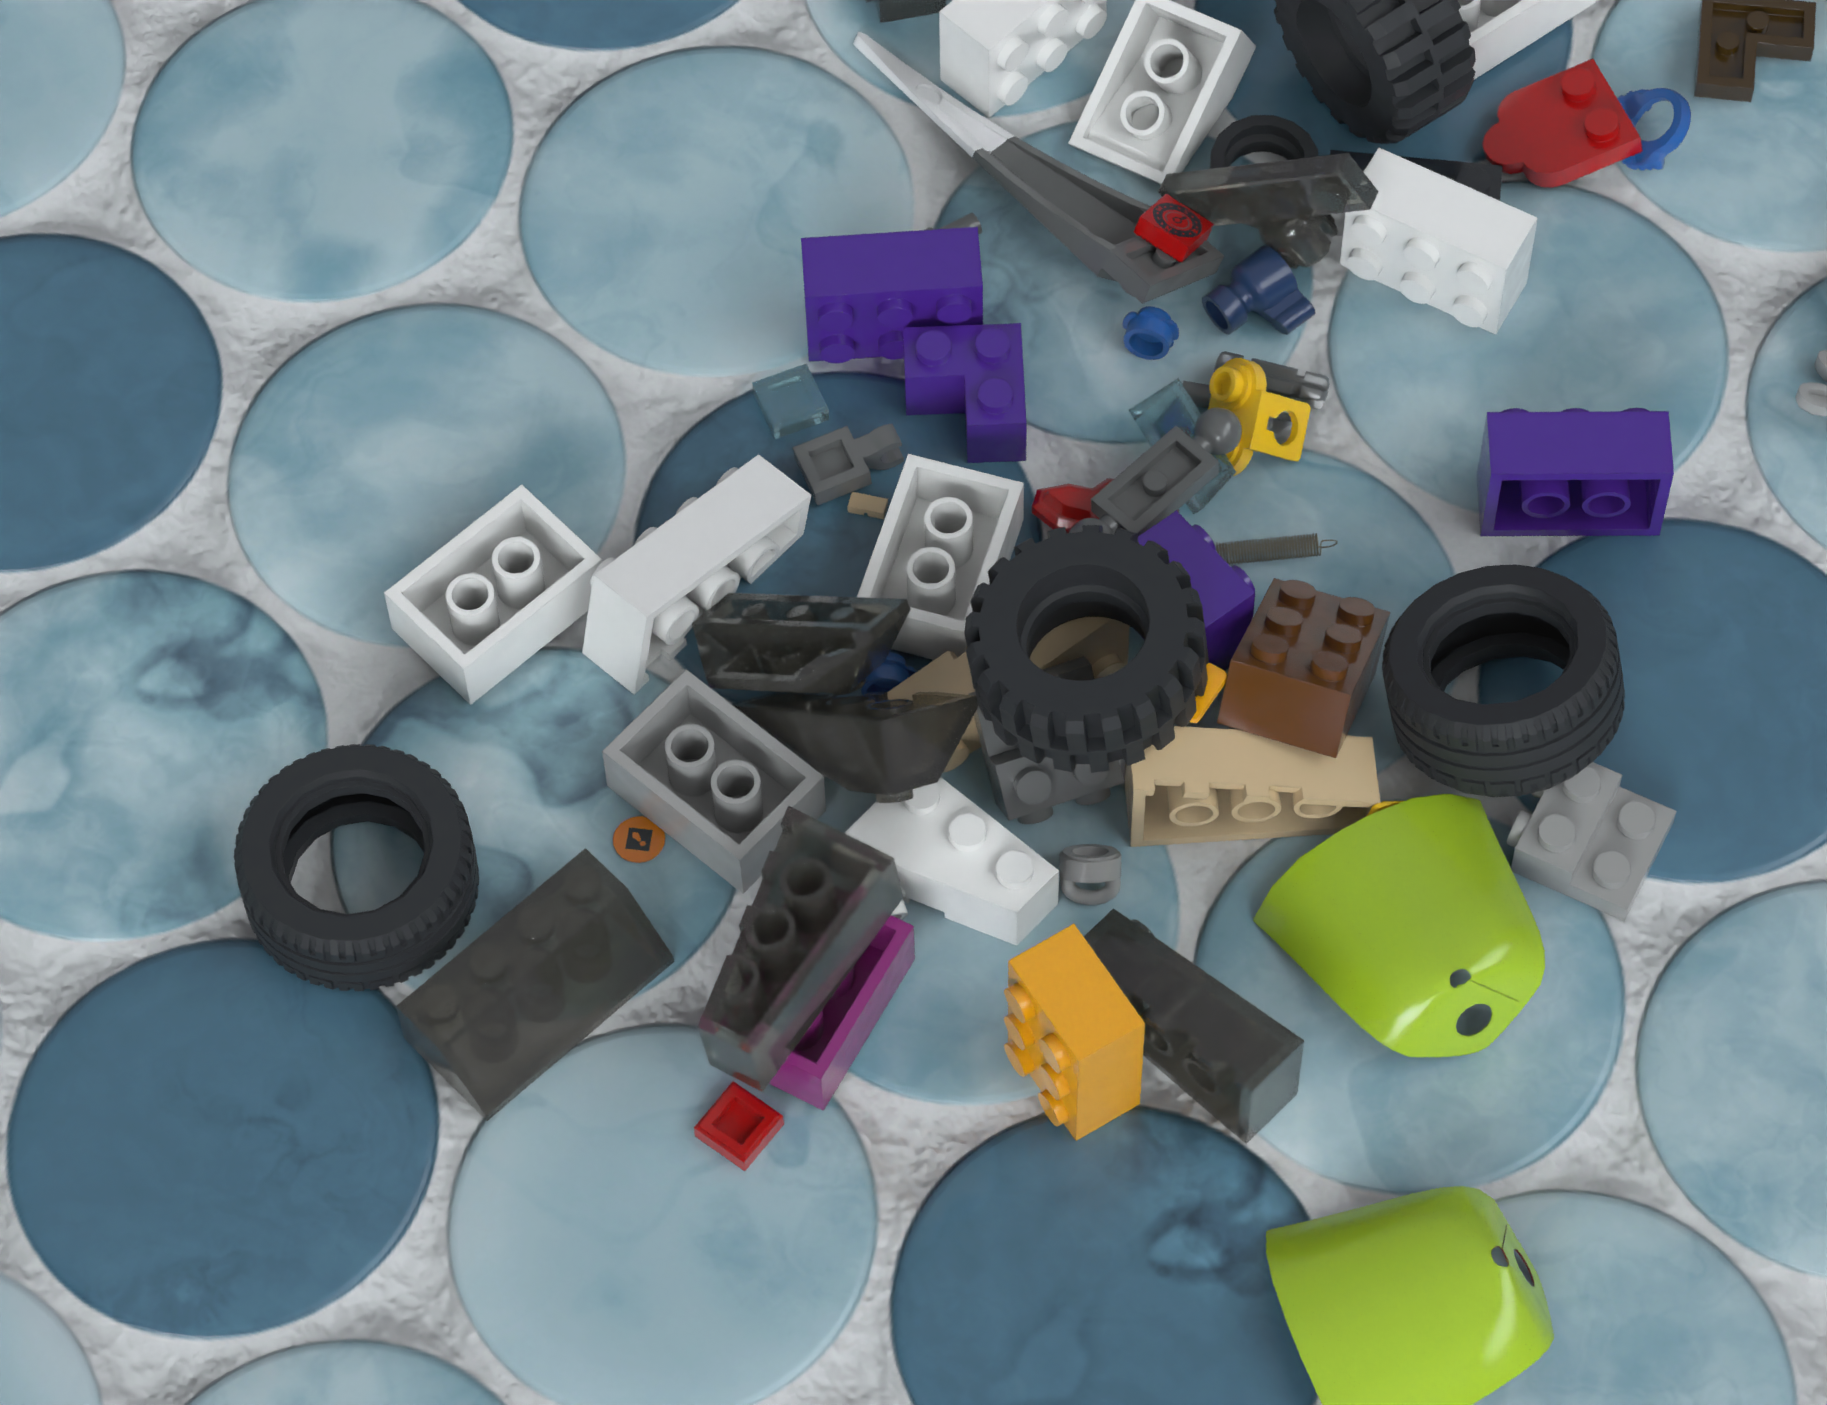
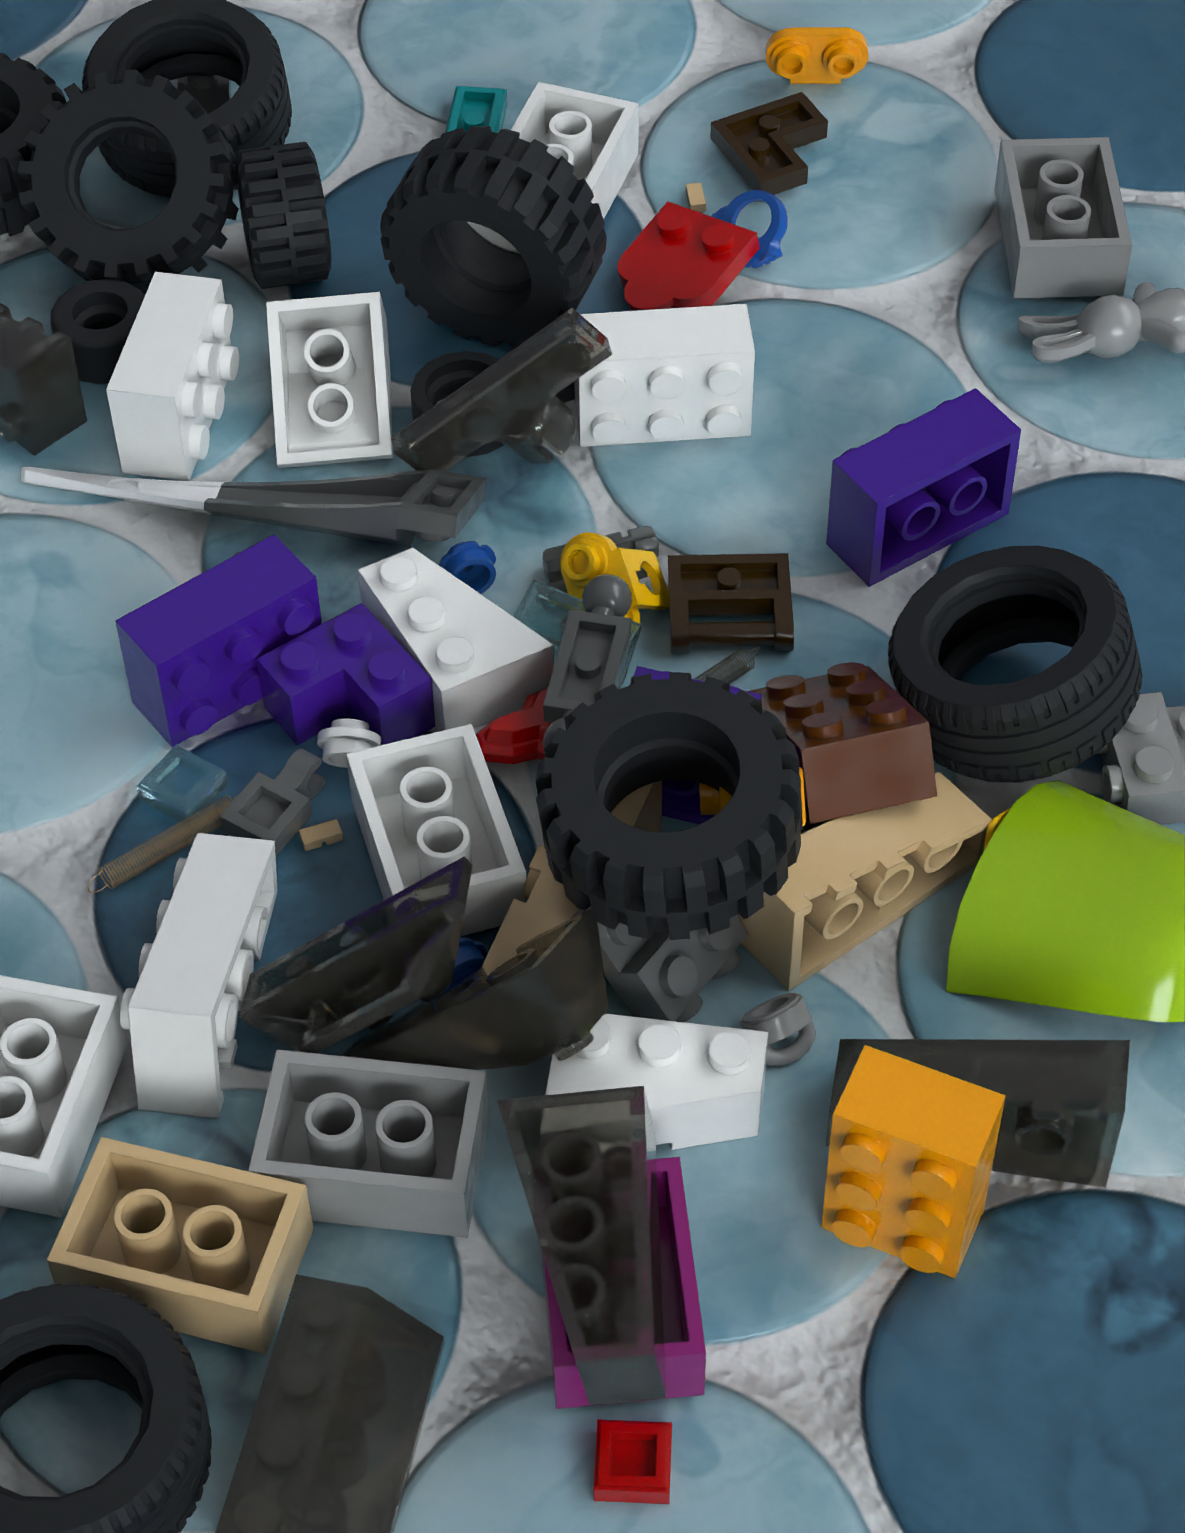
camera: 35 degrees left, 10 degrees down
(530, 775) = (187, 1239): none -> tan brick
(638, 839) = (327, 1249): orange sticker -> none
(740, 441) = (204, 821): none -> tan piece
(937, 439) = (343, 738): none -> white plate
(1079, 400) = (470, 647): none -> white wedge
(1173, 228) = (433, 470): red tile -> none
(1263, 286) = (537, 485): dark blue piece -> none
(1348, 470) = (730, 587): none -> dark brown plate
(1638, 61) = (695, 197): none -> tan piece

